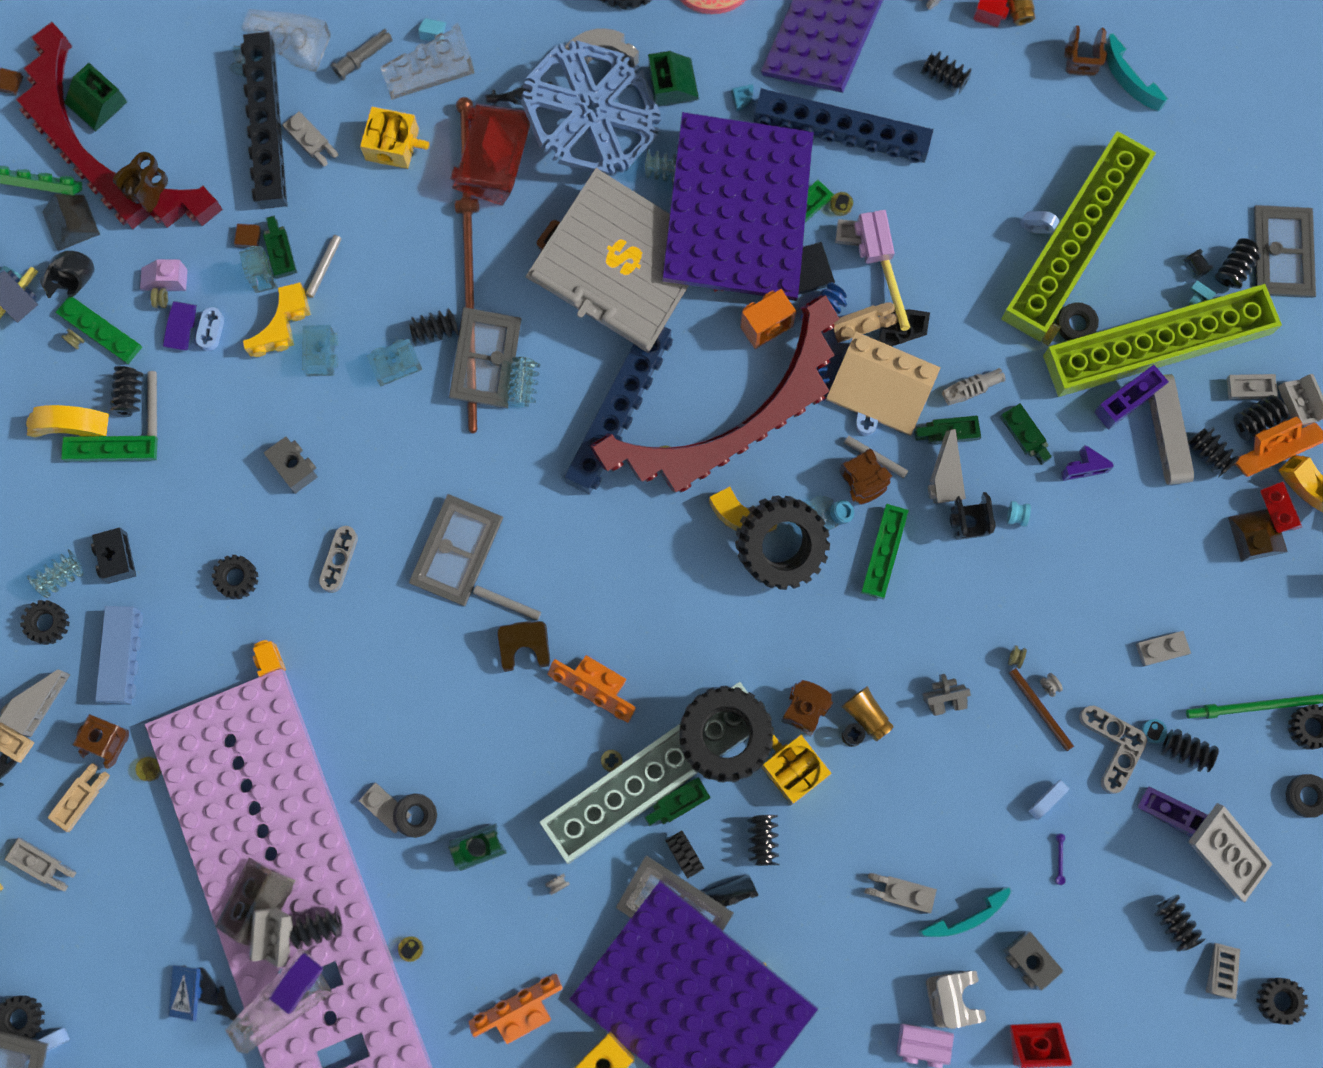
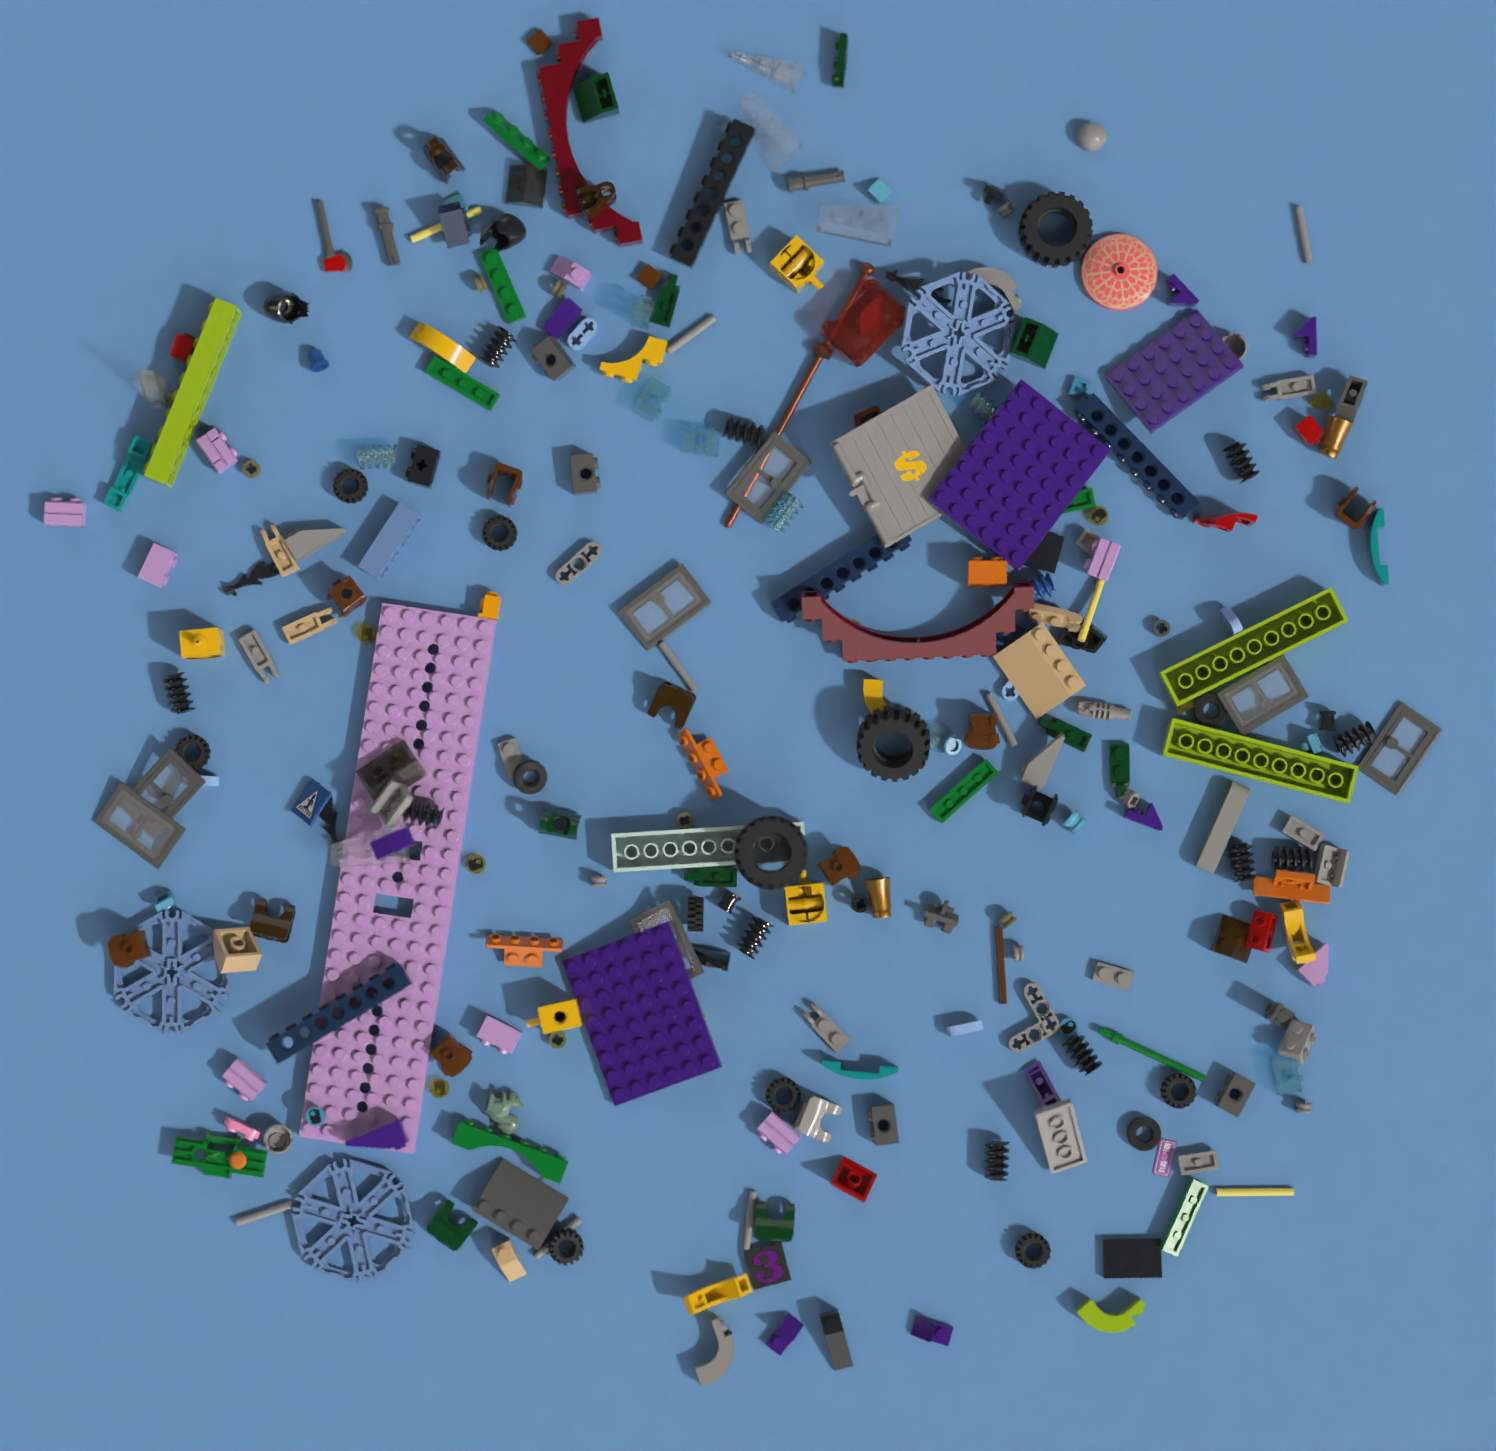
camera: 25 degrees right, 10 degrees up
(152, 403) = (510, 366): light grey bar -> none
(198, 511) = (509, 472): none -> reddish brown piece
(204, 368) = (563, 363): none -> dark grey brick
(712, 819) = (729, 901): none -> black bush
(918, 994) = (783, 1083): none -> black tyre
(973, 130) = (1225, 521): none -> red slope
(977, 267) = (1156, 632): none -> dark grey bush
(1059, 455) = (1130, 798): none -> light grey bush
(1060, 879) = (956, 1058): dark purple hinge -> none
(1118, 278) = (1262, 695): none -> clear door
(1130, 397) = (1209, 788): dark purple slope -> none
(1232, 981) = (1001, 1224): light grey slope -> none

